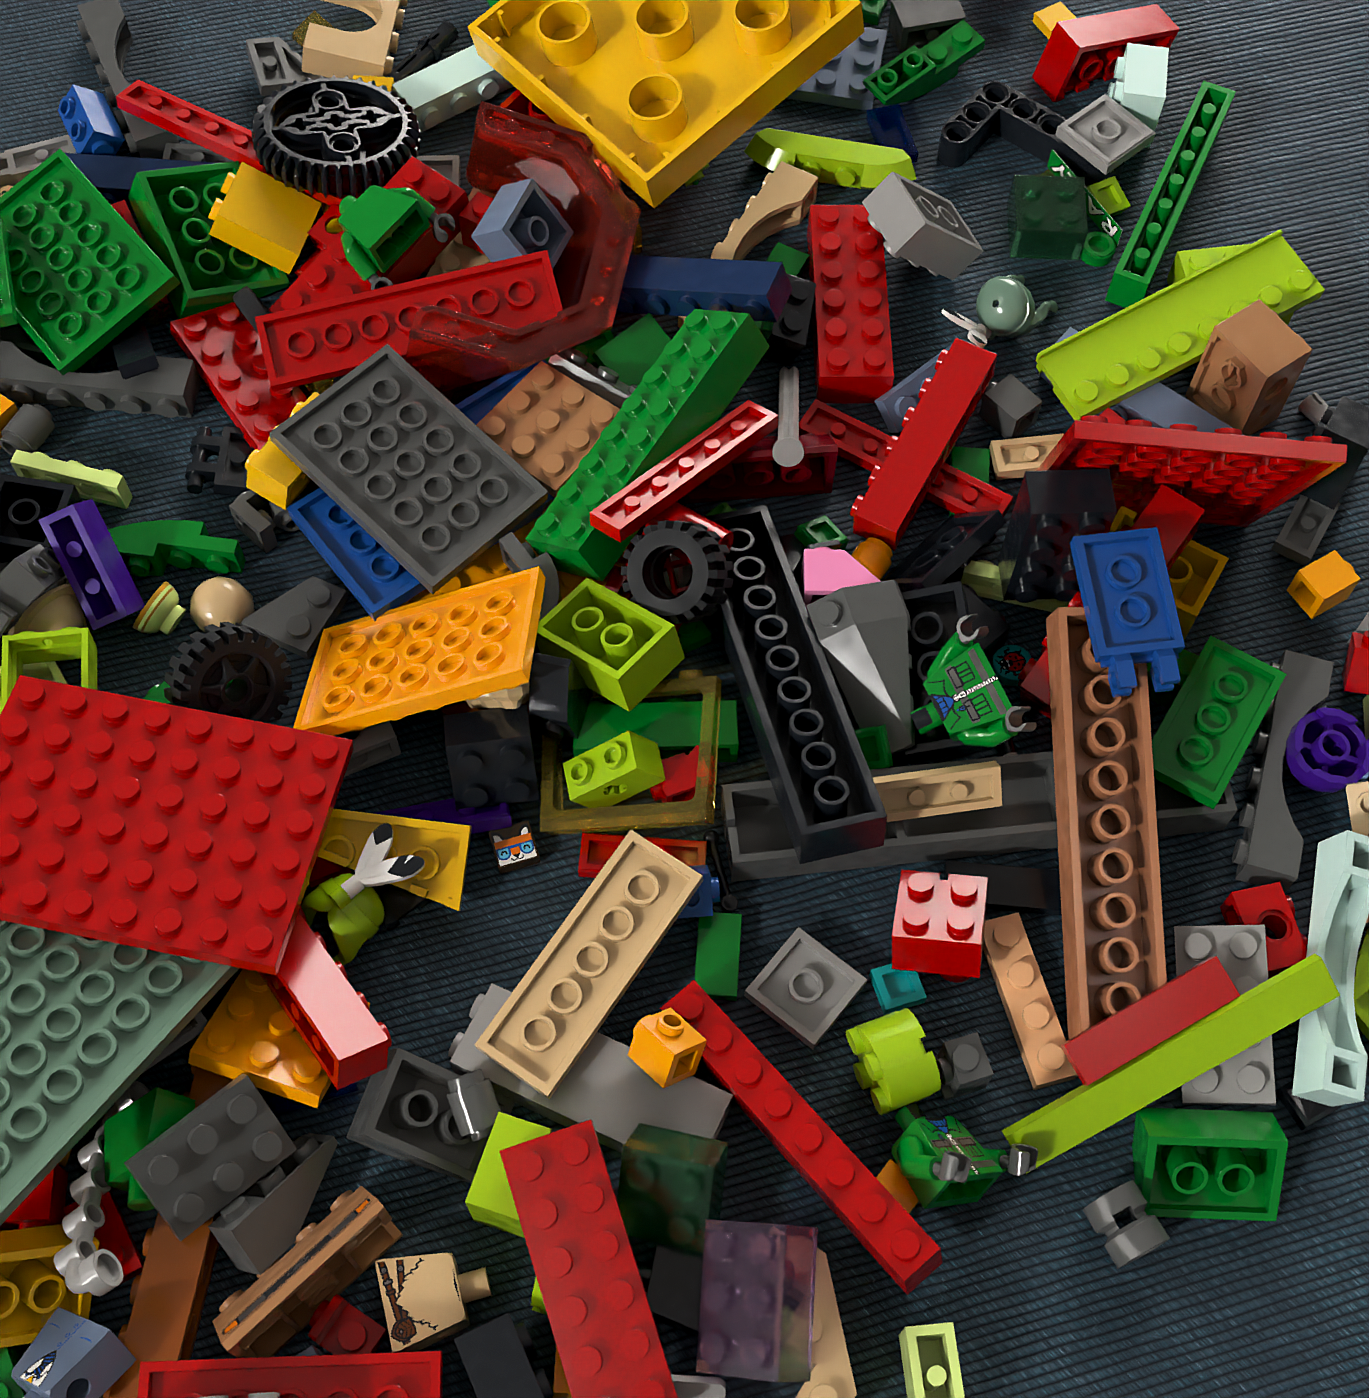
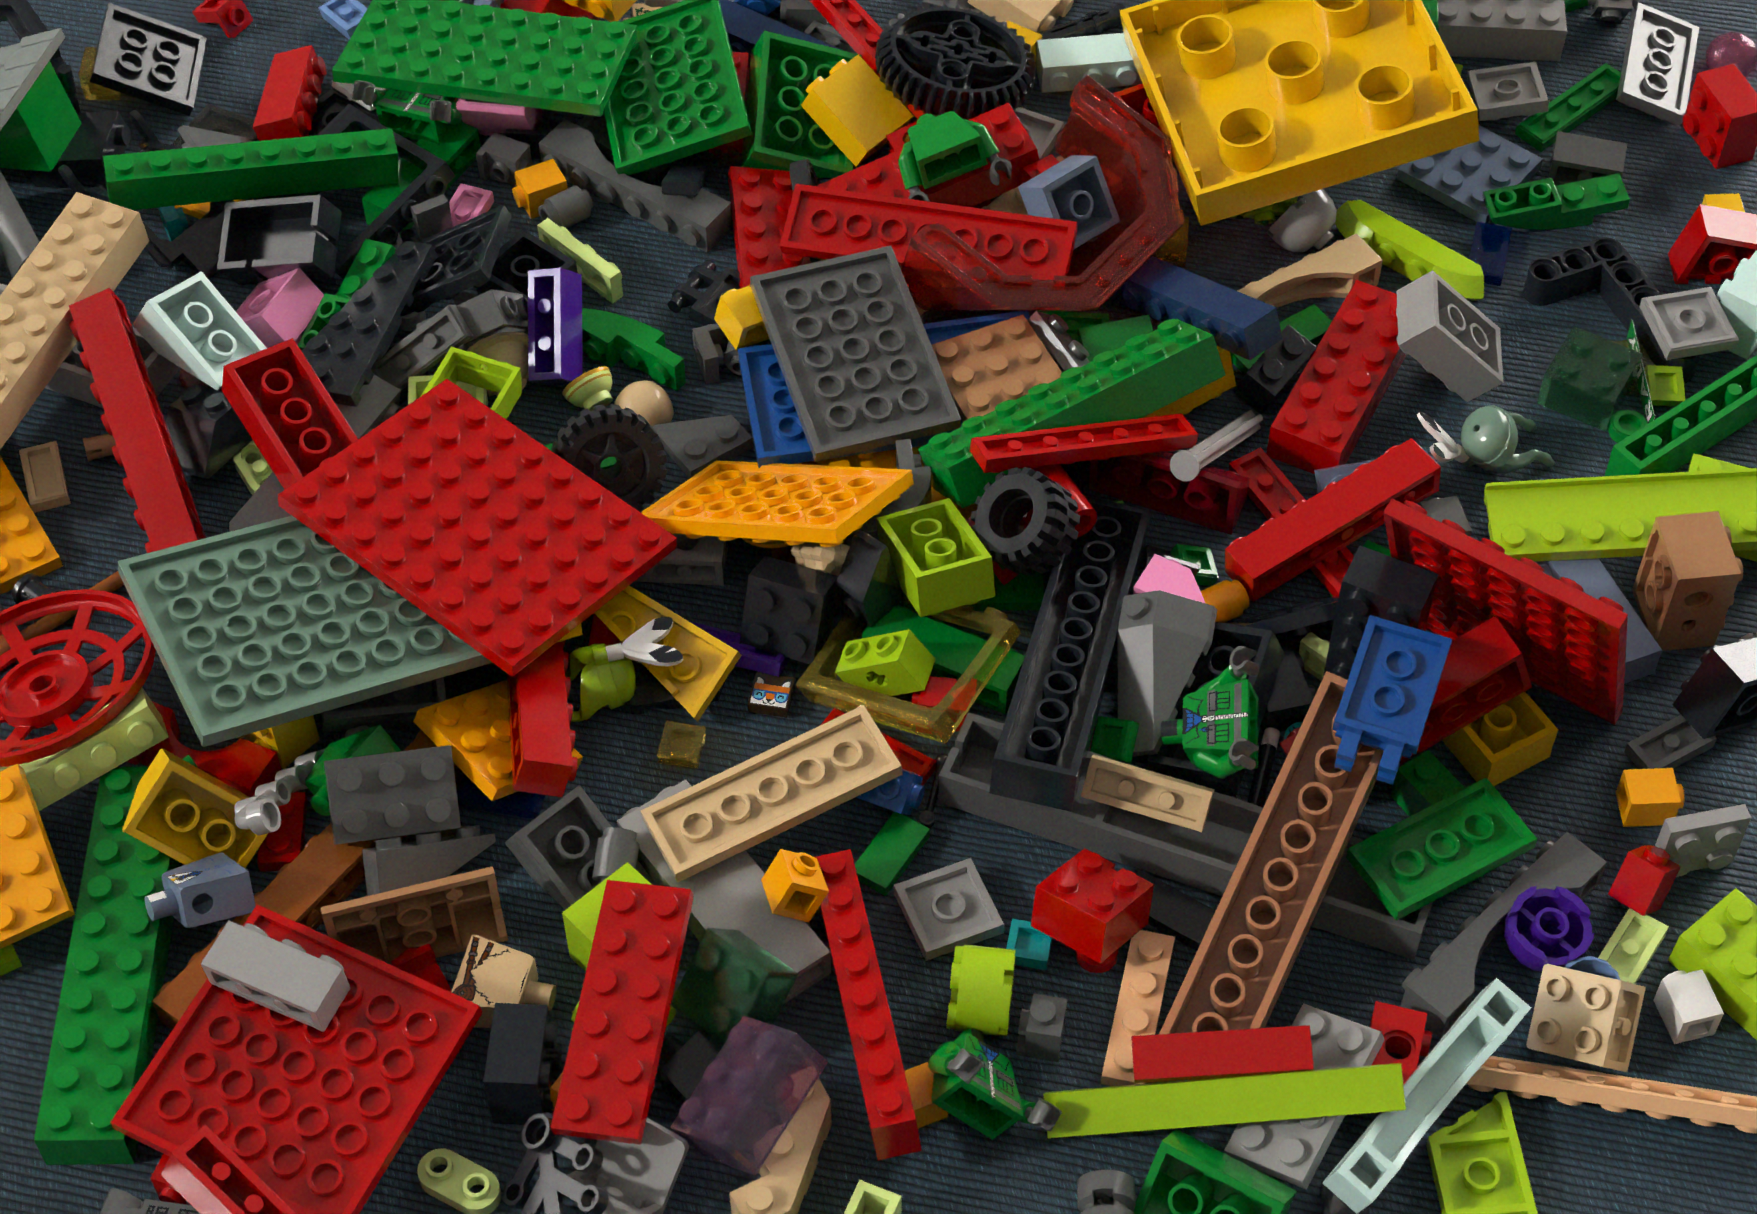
camera: 30 degrees right, 10 degrees down
(460, 942) = (681, 744): none -> clear yellow plate
(731, 171) = (1305, 223): none -> light grey cylinder

